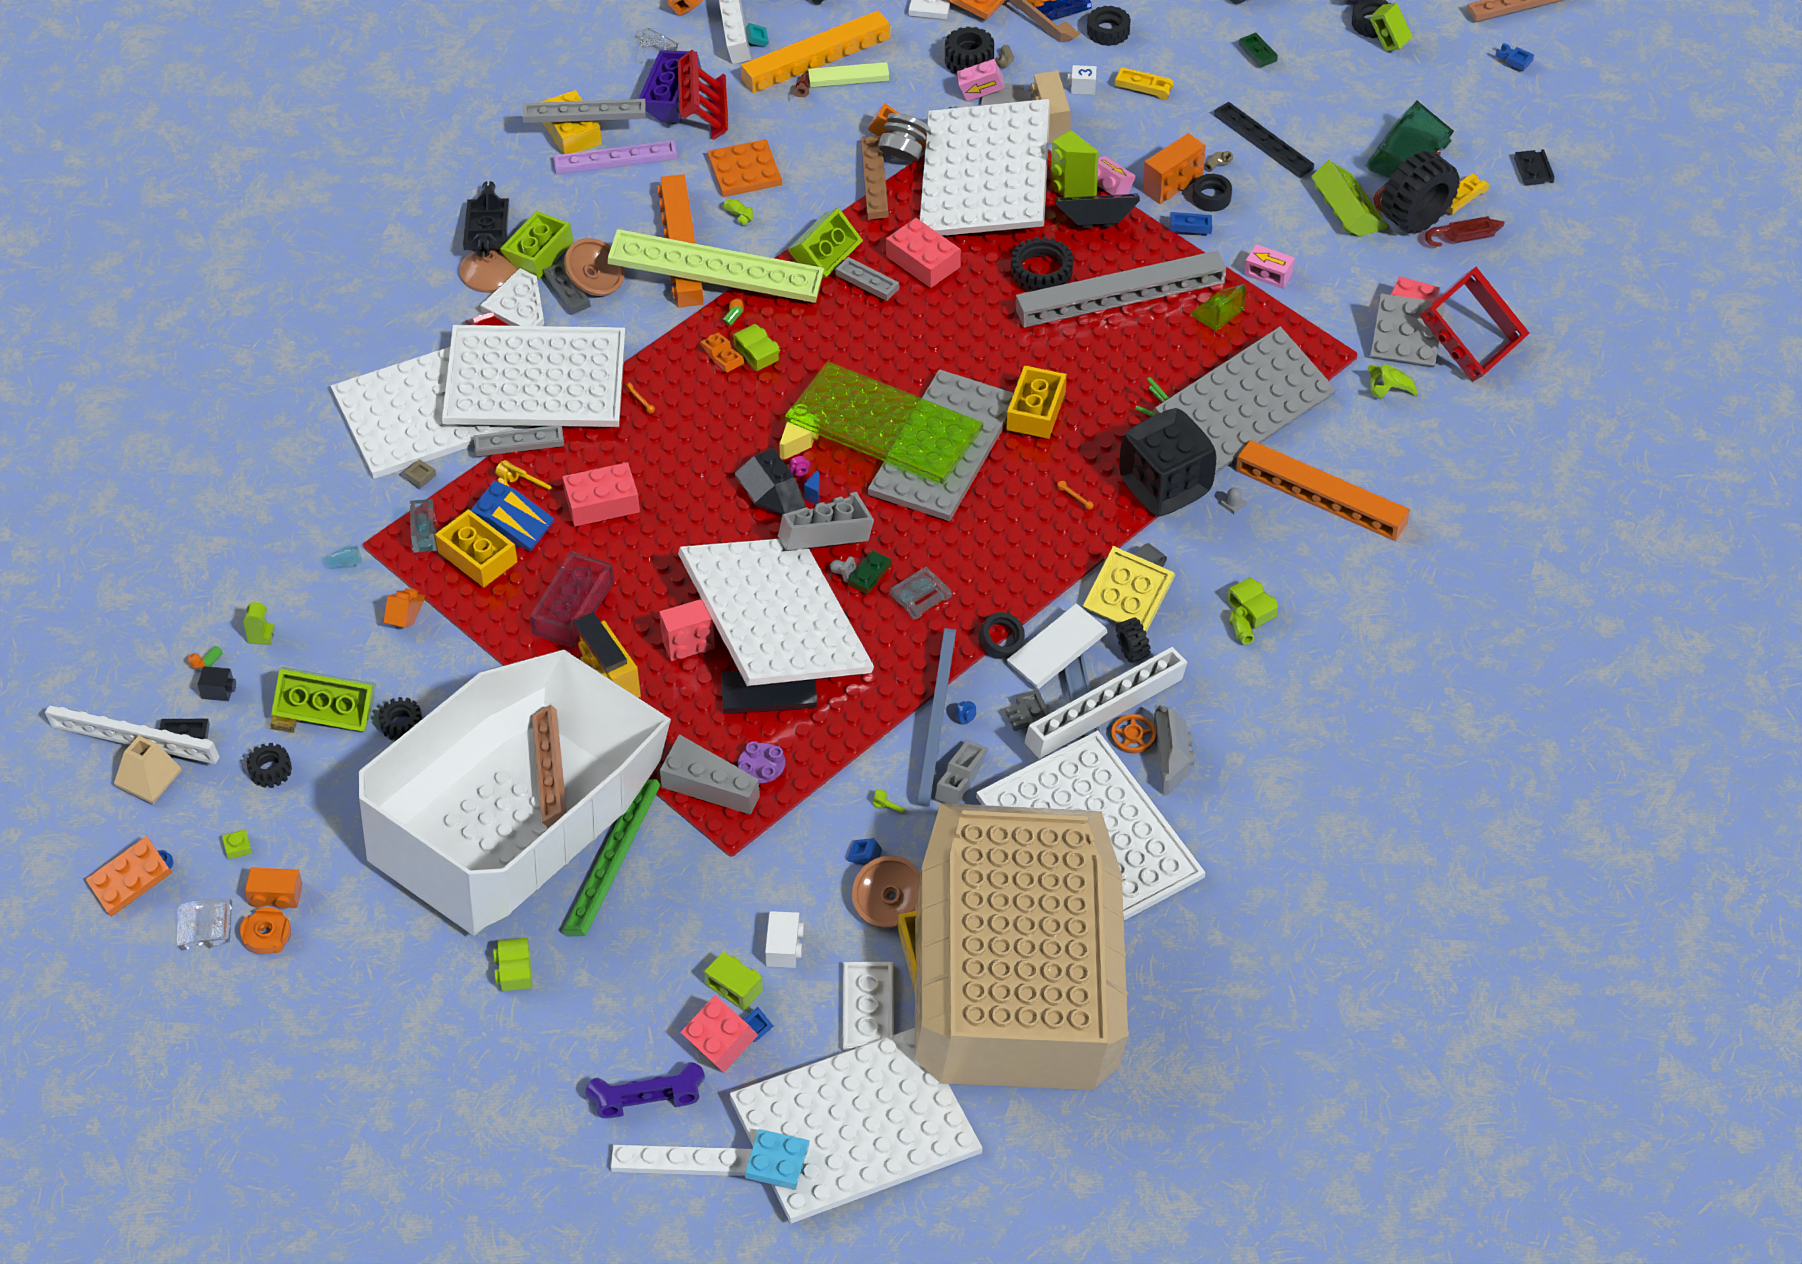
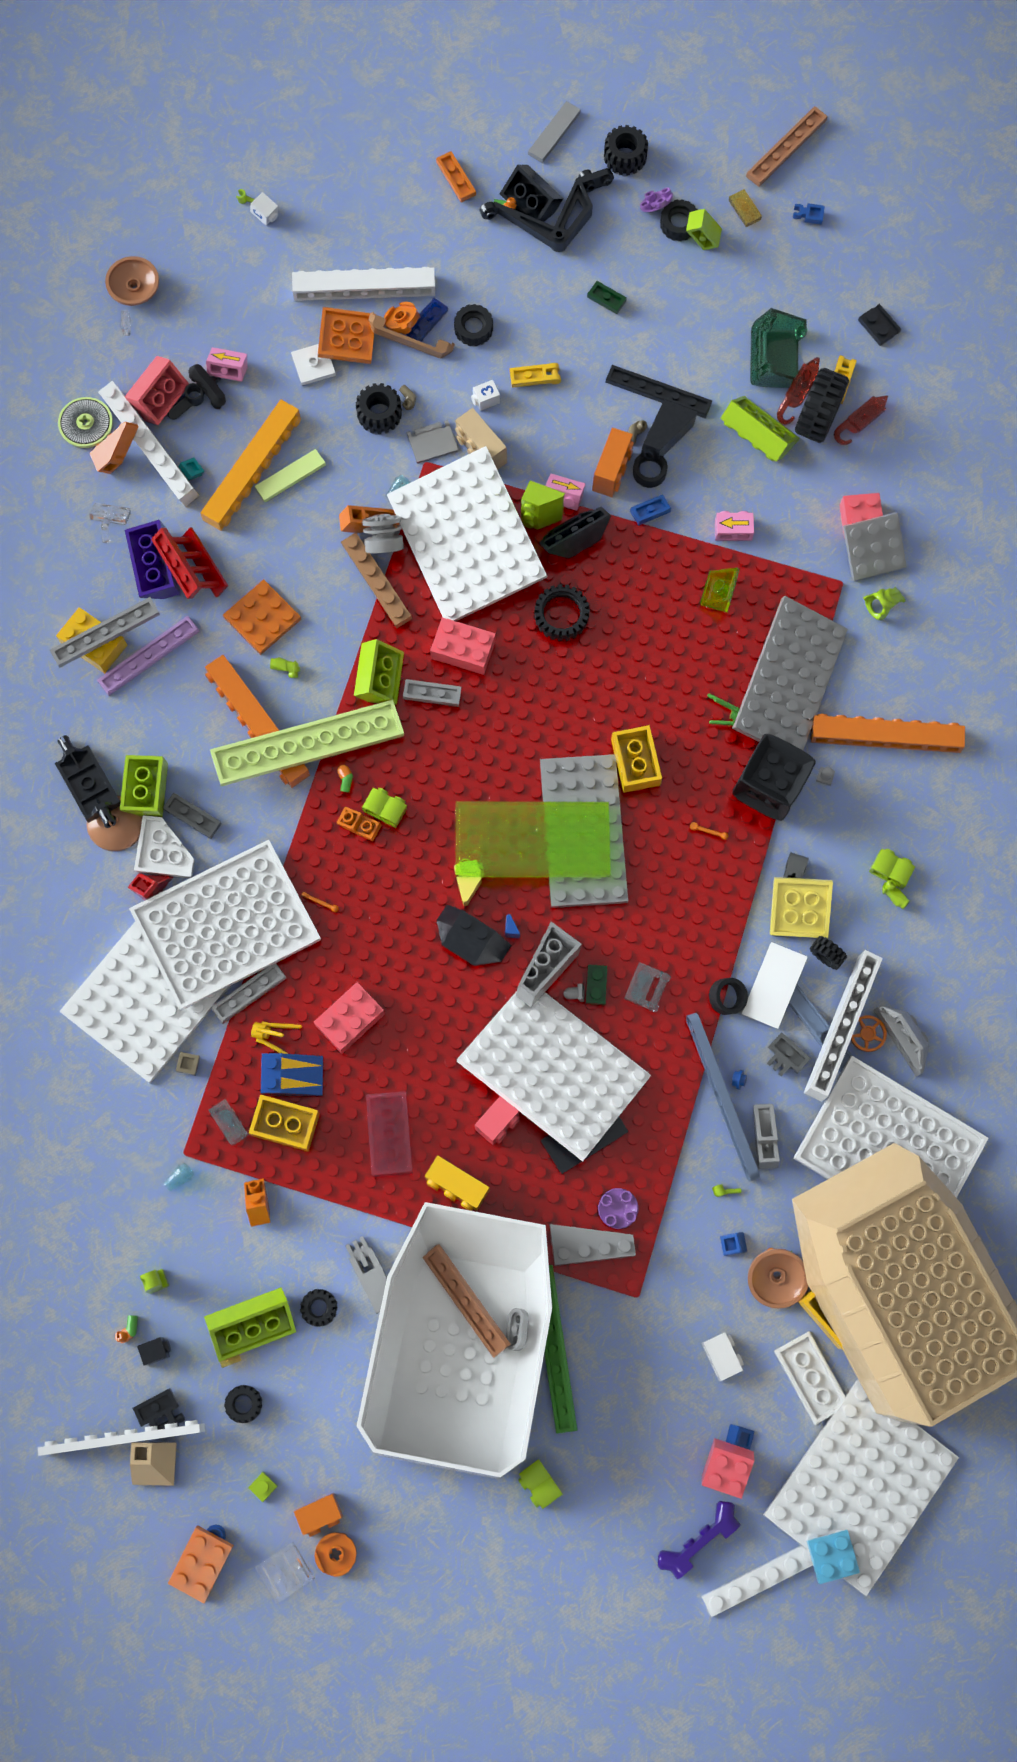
camera: 30 degrees left, 25 degrees up
(591, 257) = (203, 776): nougat dish -> none
(600, 642) = (448, 1180): black tile -> none
(733, 980) = (707, 1412): lime brick -> none
(799, 466) = (486, 910): dark pink plate -> none
(802, 87) = (260, 507): pearl gold piece -> none
(980, 80) = (407, 437): bright pink brick -> none
(1120, 289) = (635, 608): light grey brick -> none
(1248, 164) = (667, 429): none -> black slope
(1449, 31) = (745, 208): none -> clear yellow plate
(1493, 305) = (937, 498): red window -> none

